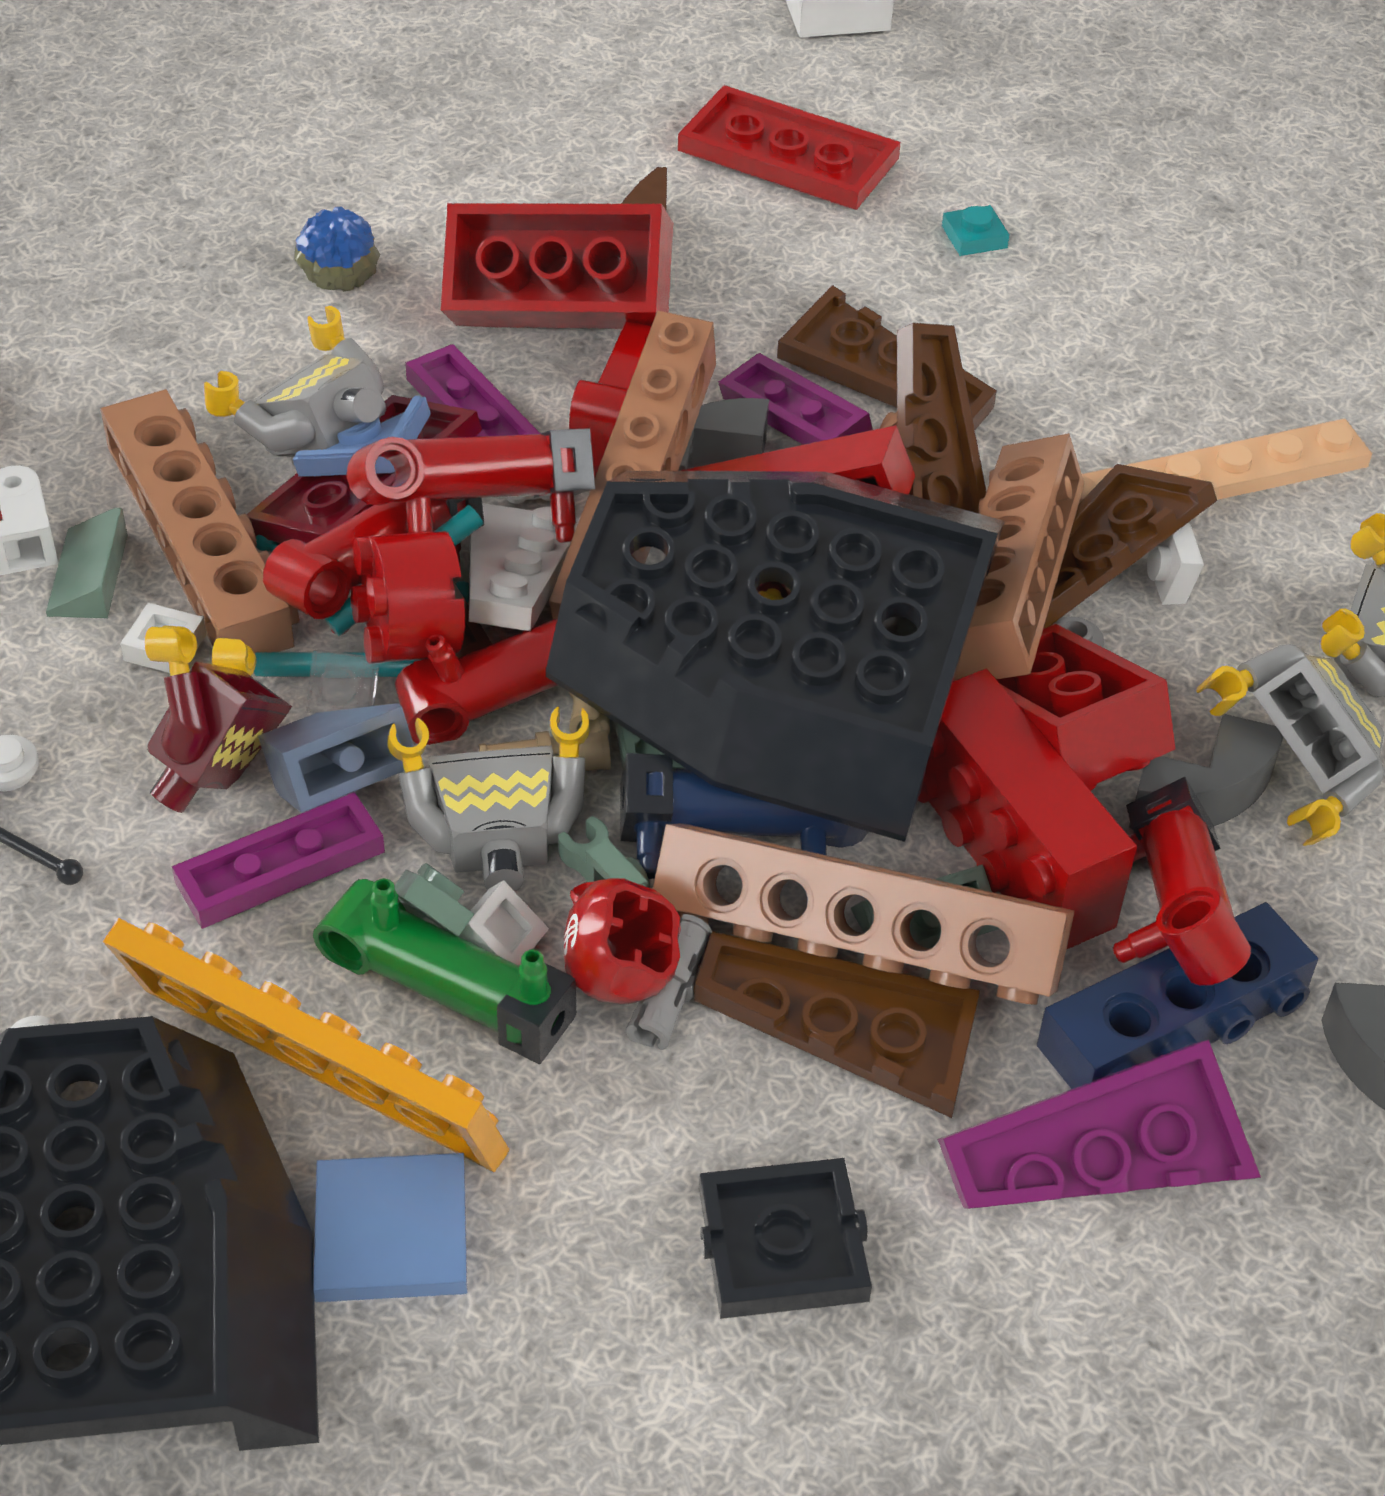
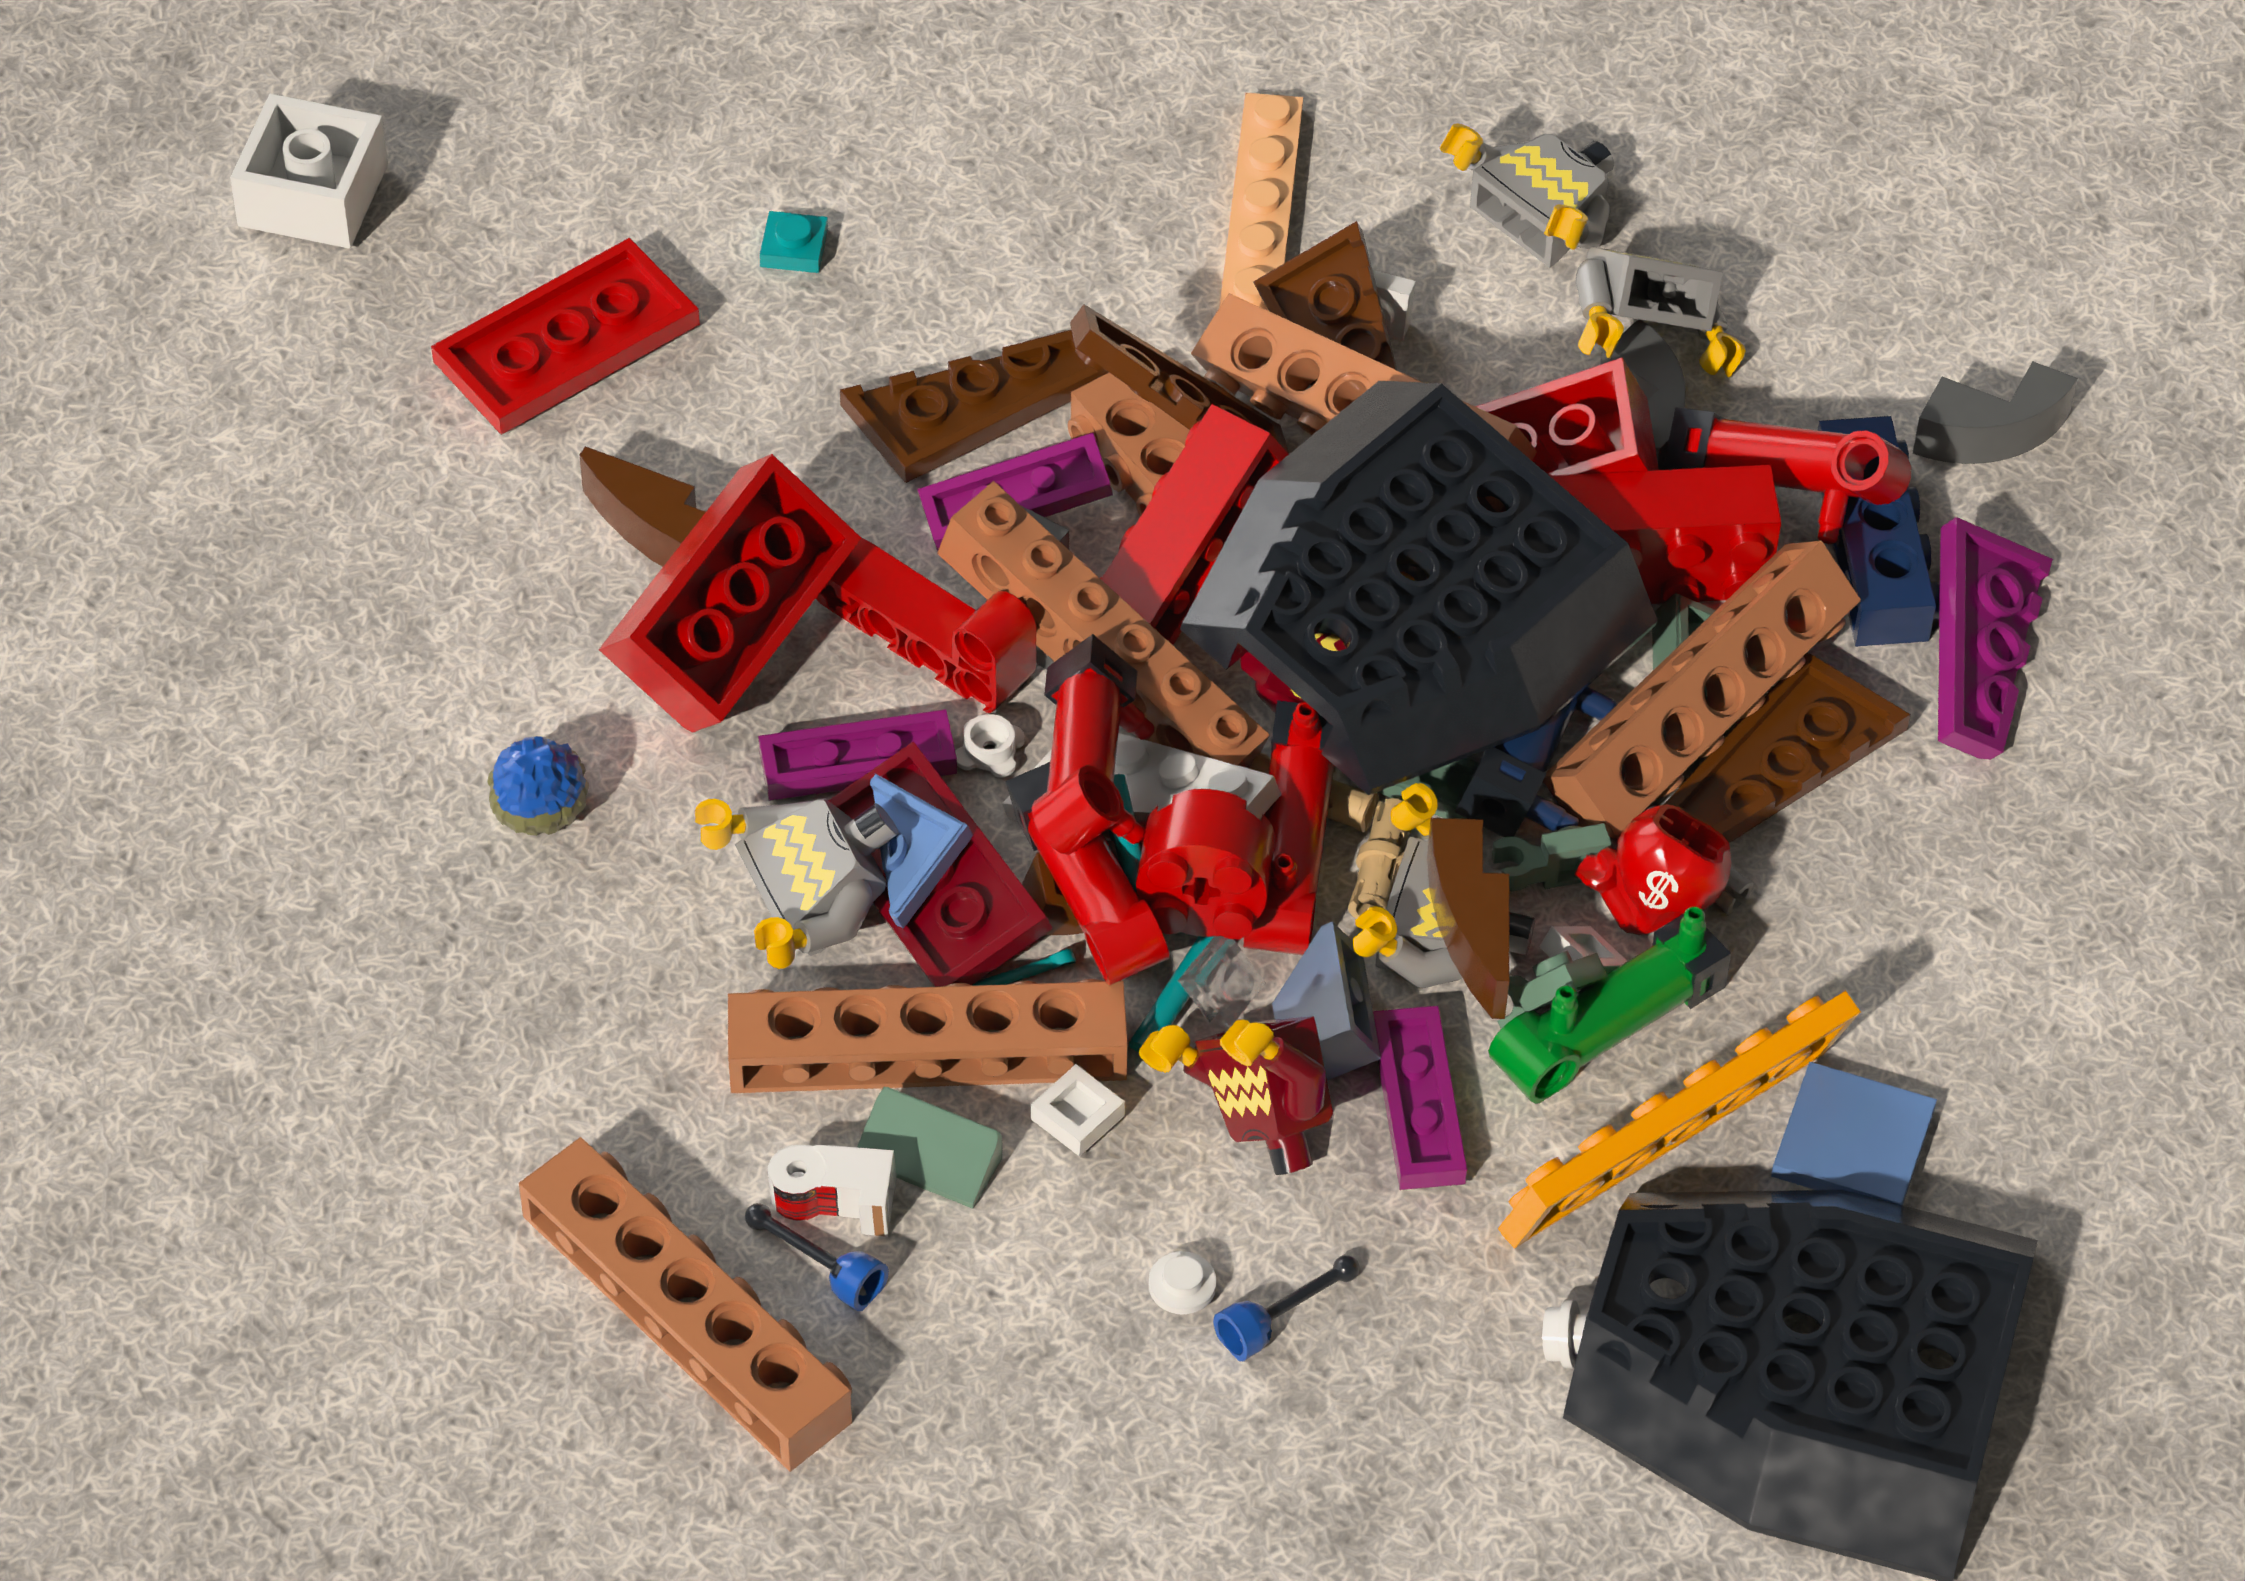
camera: 65 degrees left, 5 degrees up
(459, 799) = (1471, 909): none -> reddish brown slope
(784, 1238) = (1981, 878): black plate -> none

